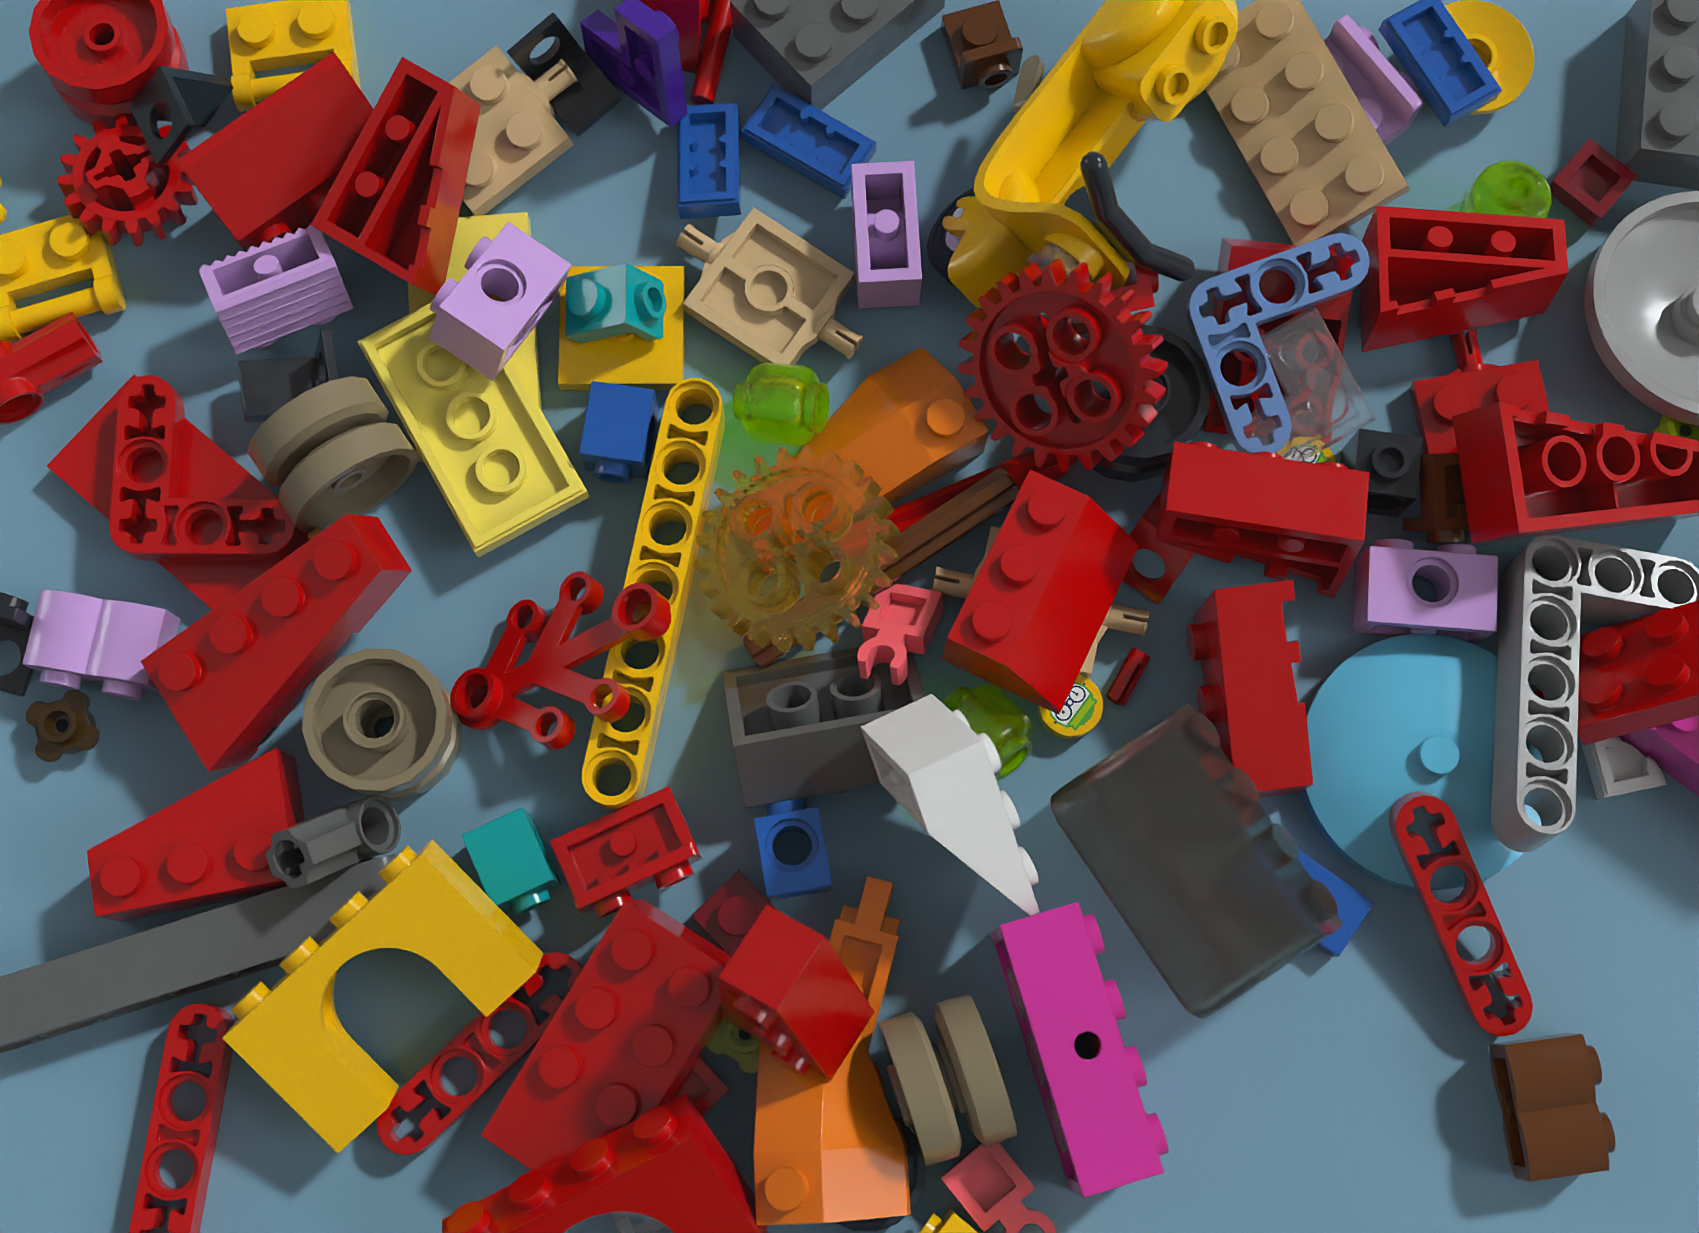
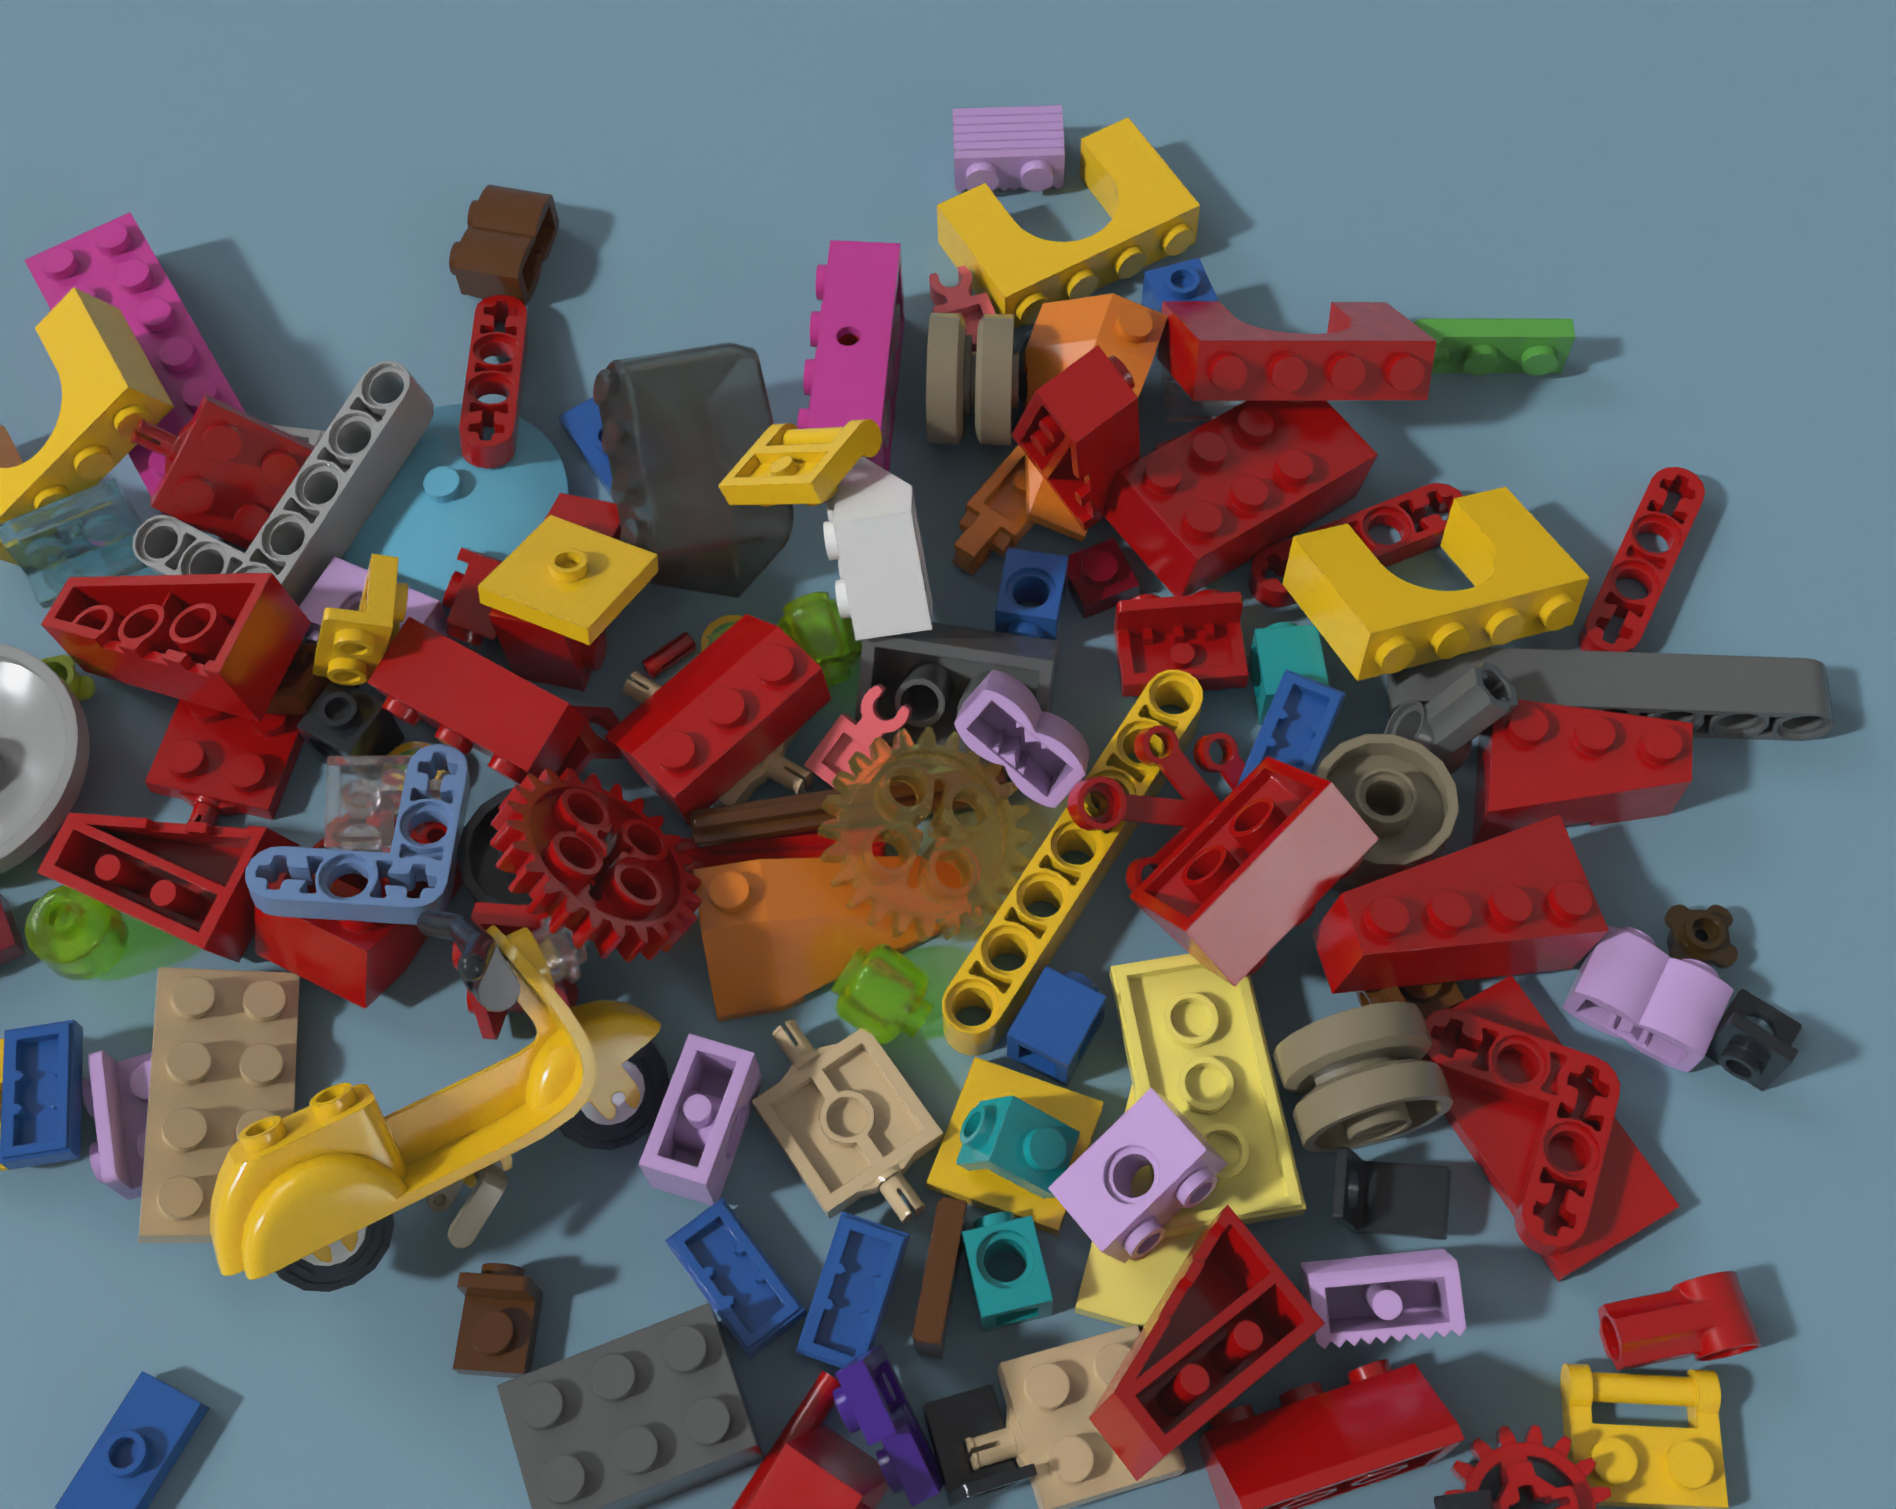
camera: 155 degrees left, 15 degrees down
(478, 595) = (1255, 868): none -> slope
(482, 761) = (1296, 724): none -> blue plate
(586, 191) = (1006, 1302): none -> teal brick
(642, 192) = (940, 1278): none -> reddish brown tile
(736, 660) = (1036, 747): none -> lavender brick
(1066, 818) = (799, 464): none -> yellow plate
(1237, 650) = (568, 579): none -> yellow plate
(1332, 651) = (469, 617): none -> red brick
(1393, 537) = (356, 641): none -> yellow bracket

